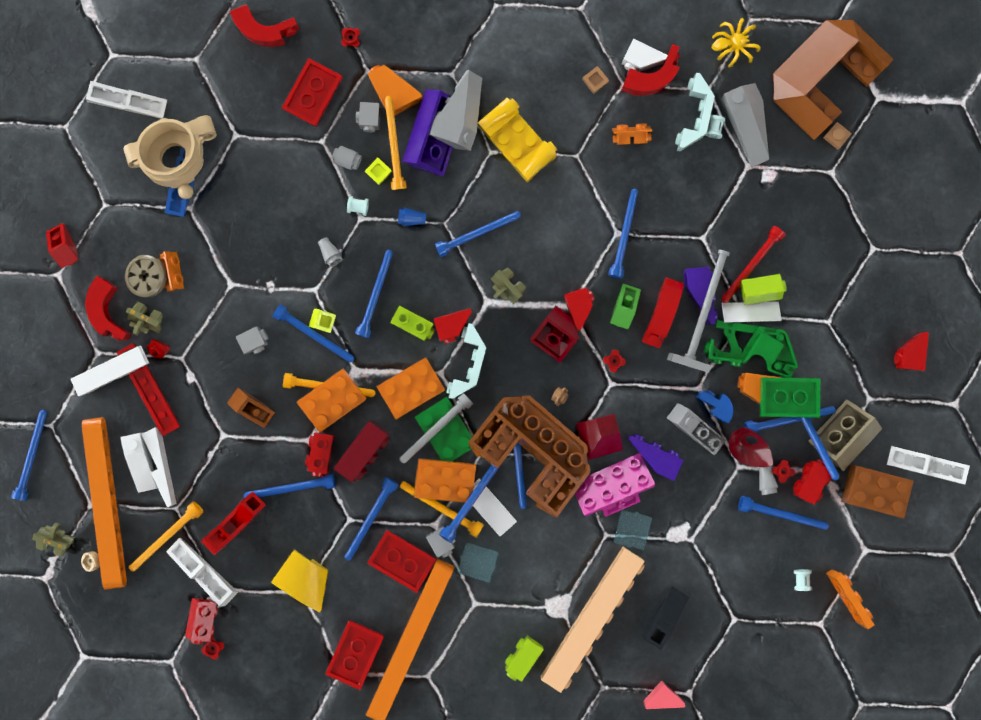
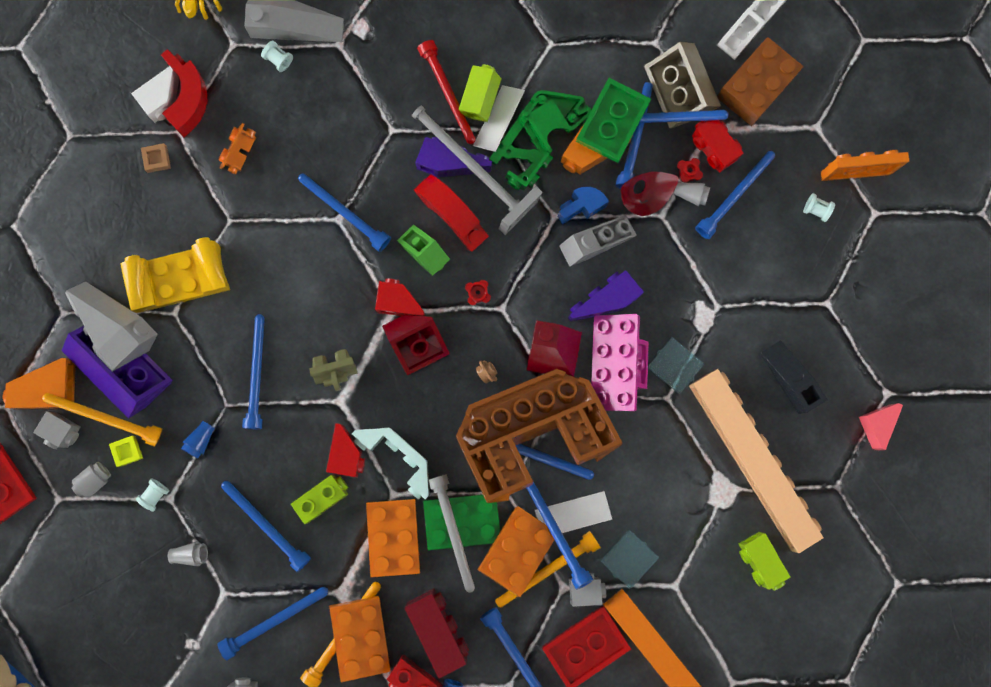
camera: 70 degrees left, 5 degrees down
(322, 320) = (262, 602): neon yellow slope -> none
(699, 89) = (230, 50): light aqua slope -> none

